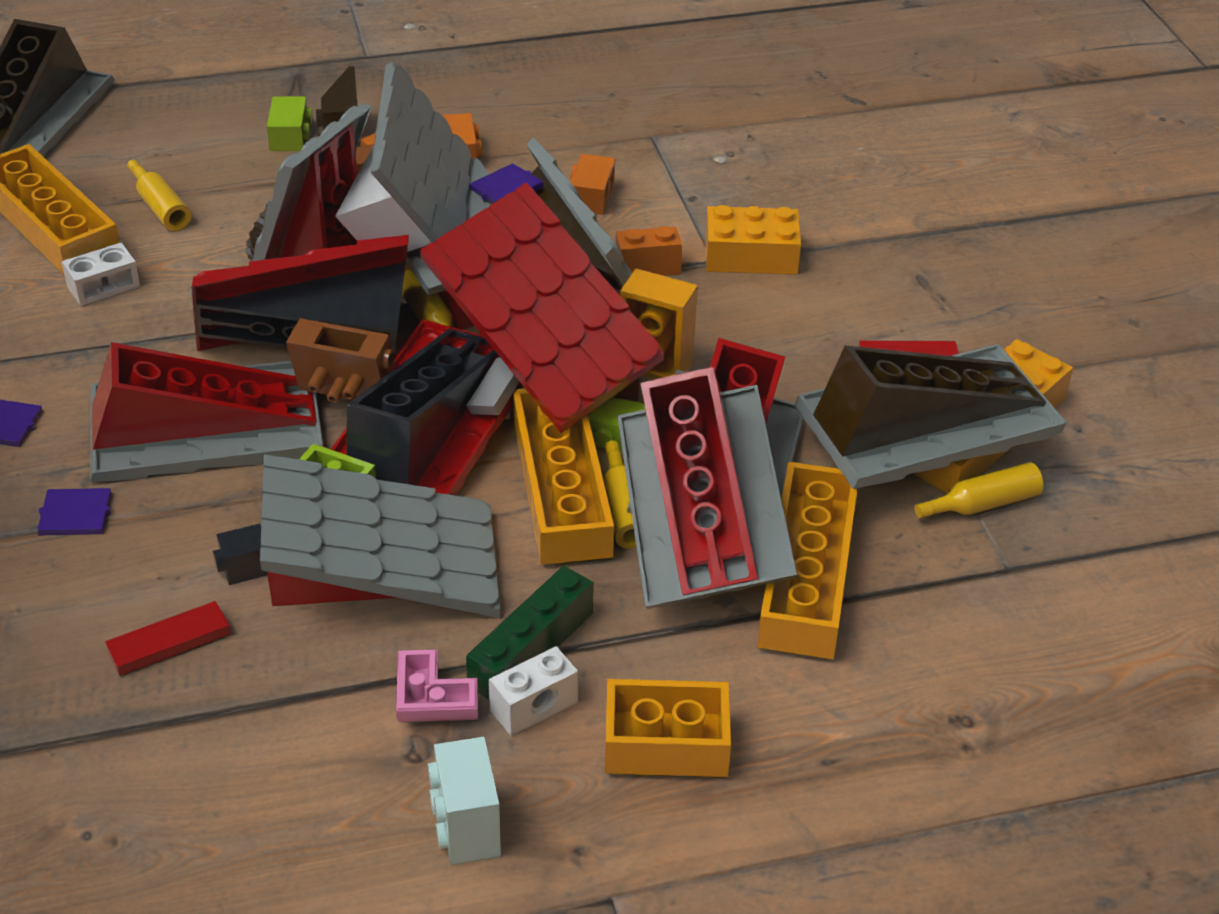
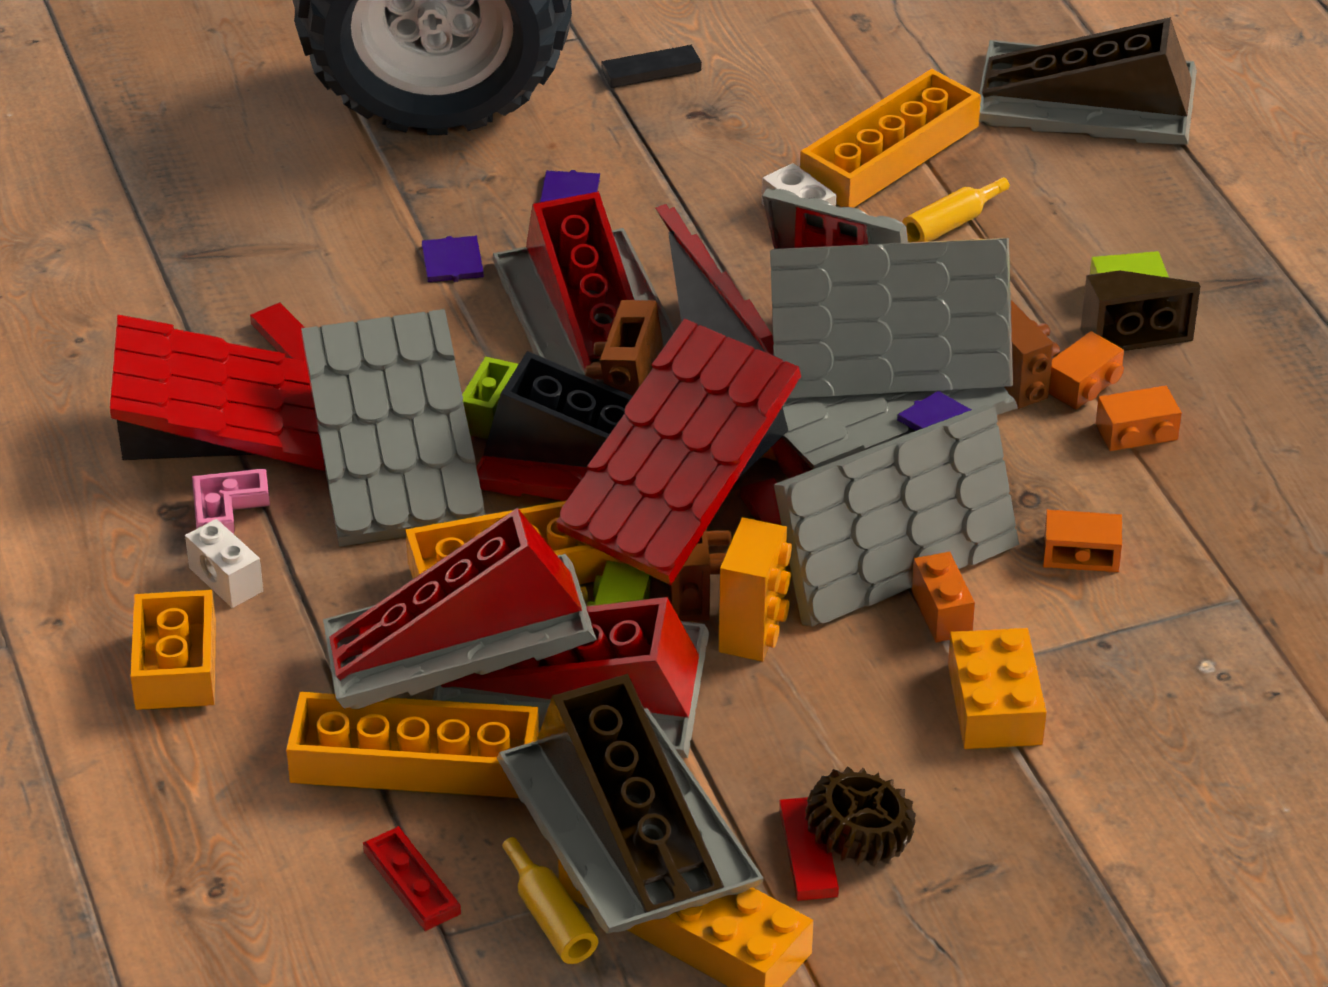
camera: 85 degrees right, 0 degrees up
(285, 682) = (208, 397): none -> red piece
(465, 801) = (81, 524): light aqua brick -> none
(533, 627) = (303, 555): dark green brick -> none
(891, 316) = (860, 816): none -> dark brown gear
(949, 582) = (412, 878): none -> red tile

